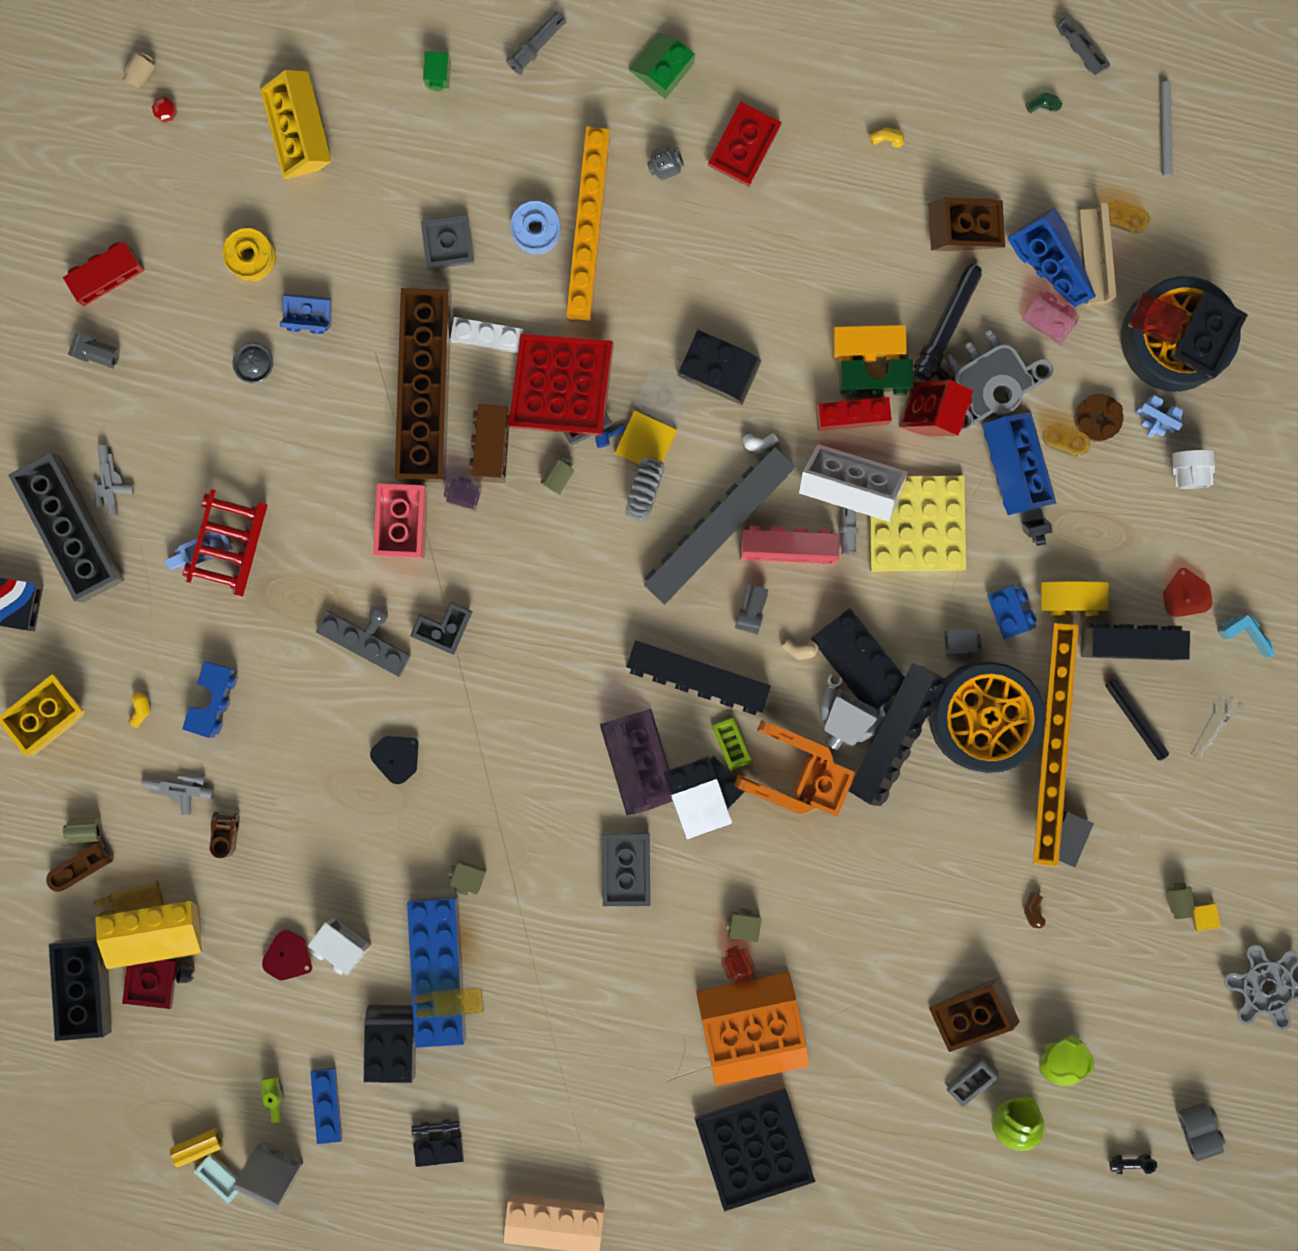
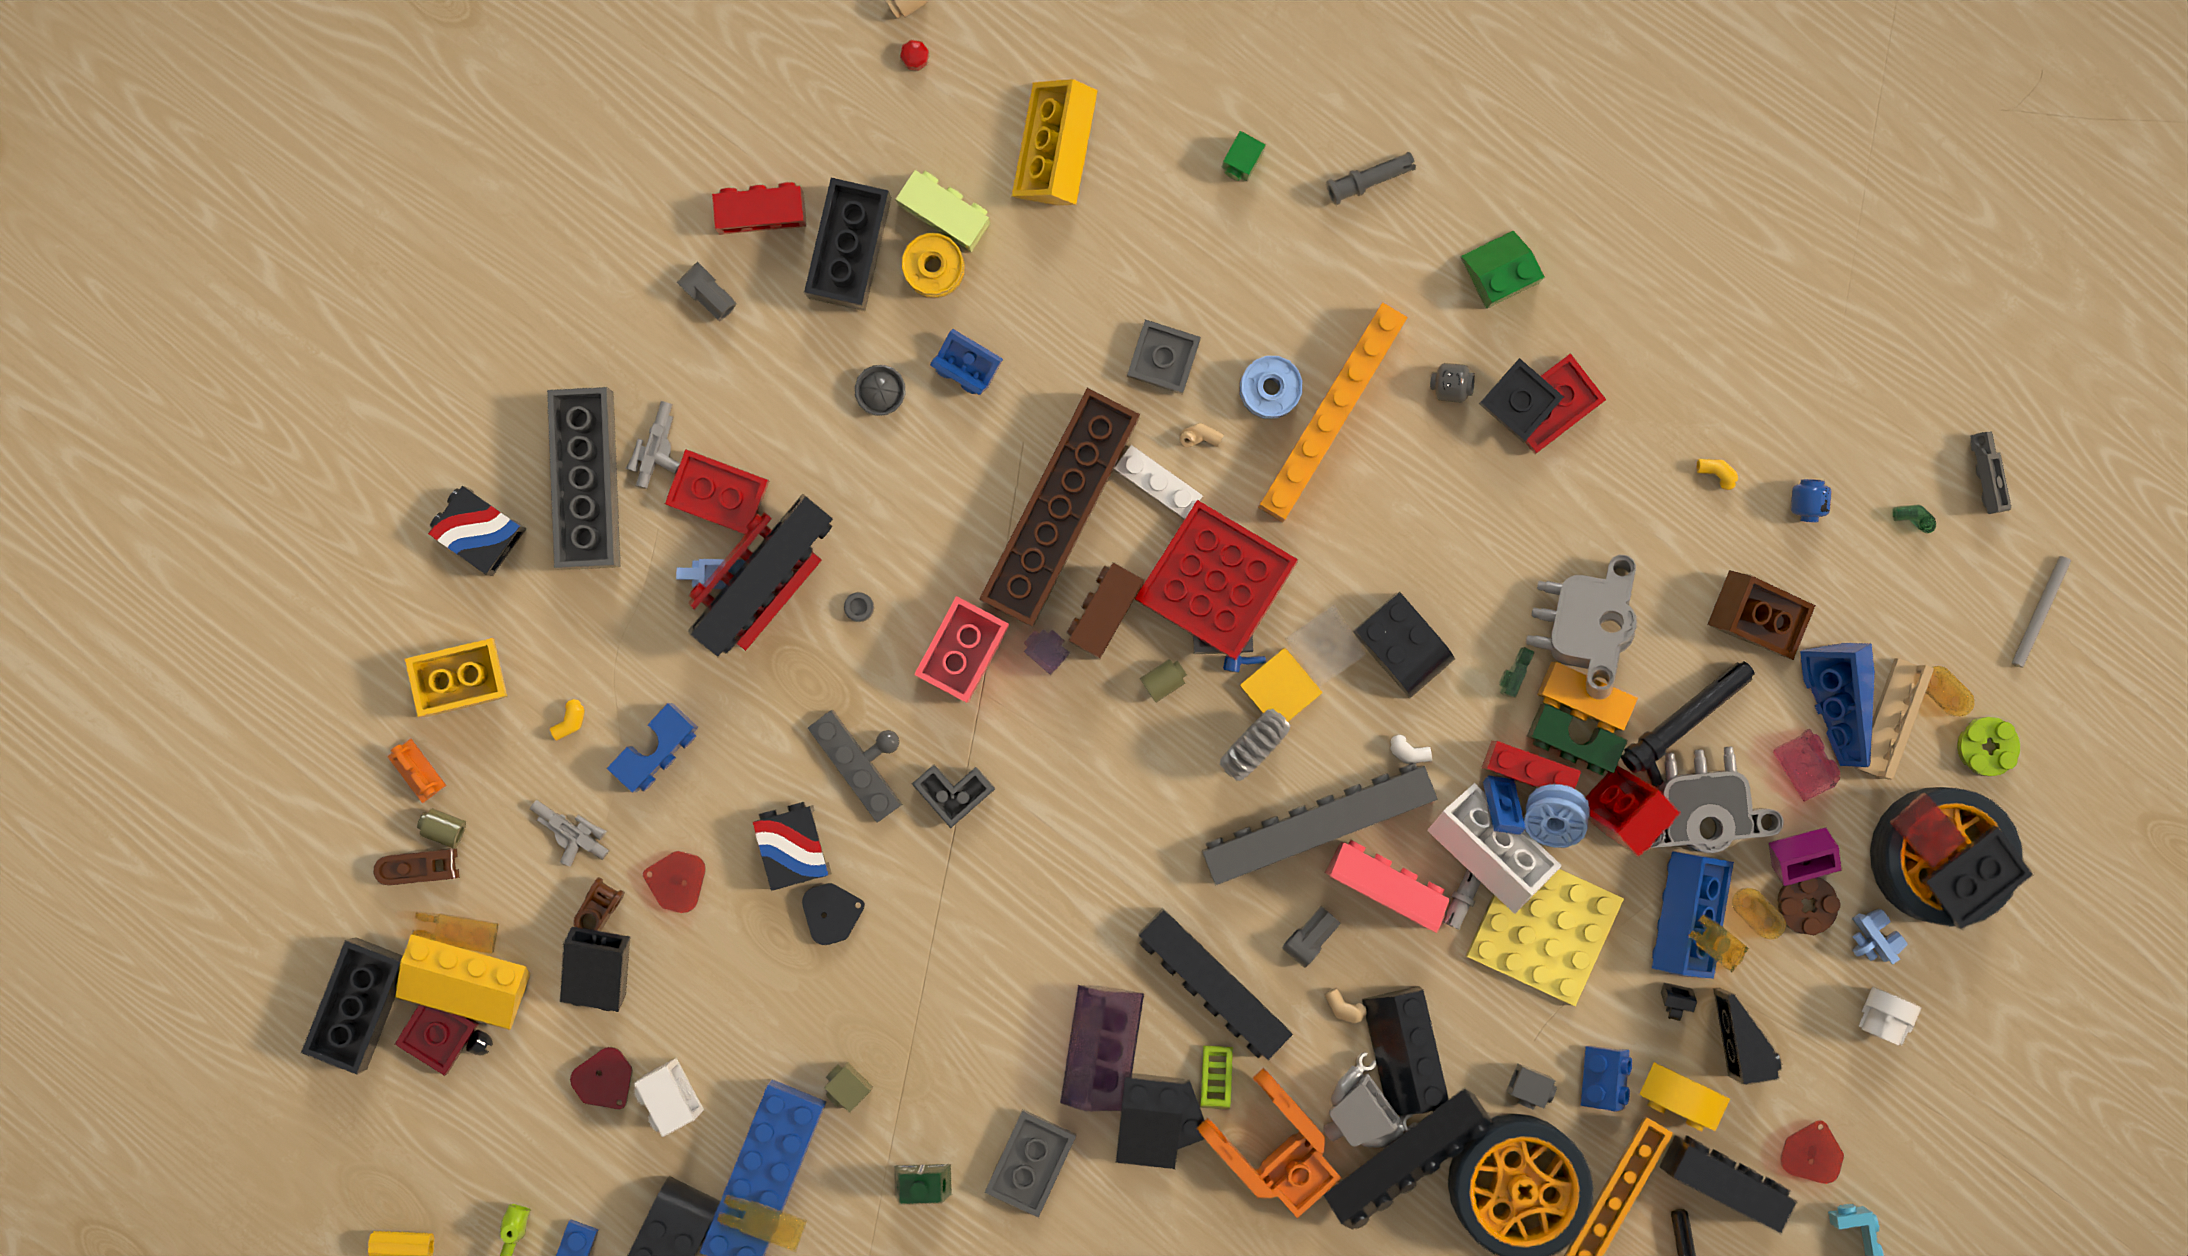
camera: 25 degrees right, 0 degrees up
(44, 798) = (416, 770): none -> orange hinge
(168, 492) = (716, 491): none -> red plate
(179, 267) = (847, 244): none -> black brick
(227, 534) = (760, 575): none -> black brick
(237, 210) = (943, 209): none -> yellowish green brick
(242, 879) = (594, 969): none -> black brick
(266, 789) = (668, 879): none -> clear red piece
(312, 527) = (859, 607): none -> dark grey tile
(343, 723) = (790, 846): none -> panel
(499, 285) = (1198, 433): none -> tan arm
(555, 921) = (922, 1183): none -> dark green torso
(720, 150) = (1521, 400): none -> black plate
(809, 355) = (1513, 678): none -> clear green plate
(836, 289) = (1577, 627): none -> light grey piece
(845, 448) = (1504, 805): none -> blue plate
(887, 437) = (1556, 816): none -> light blue wheel
(963, 125) = (1811, 500): none -> blue head
(1047, 474) = (1719, 944): none -> clear yellow hinge
(1079, 382) = (1805, 856): none -> magenta brick
(1101, 538) = (1746, 1049): none -> black slope
(1180, 230) = (2006, 746): none -> lime plate

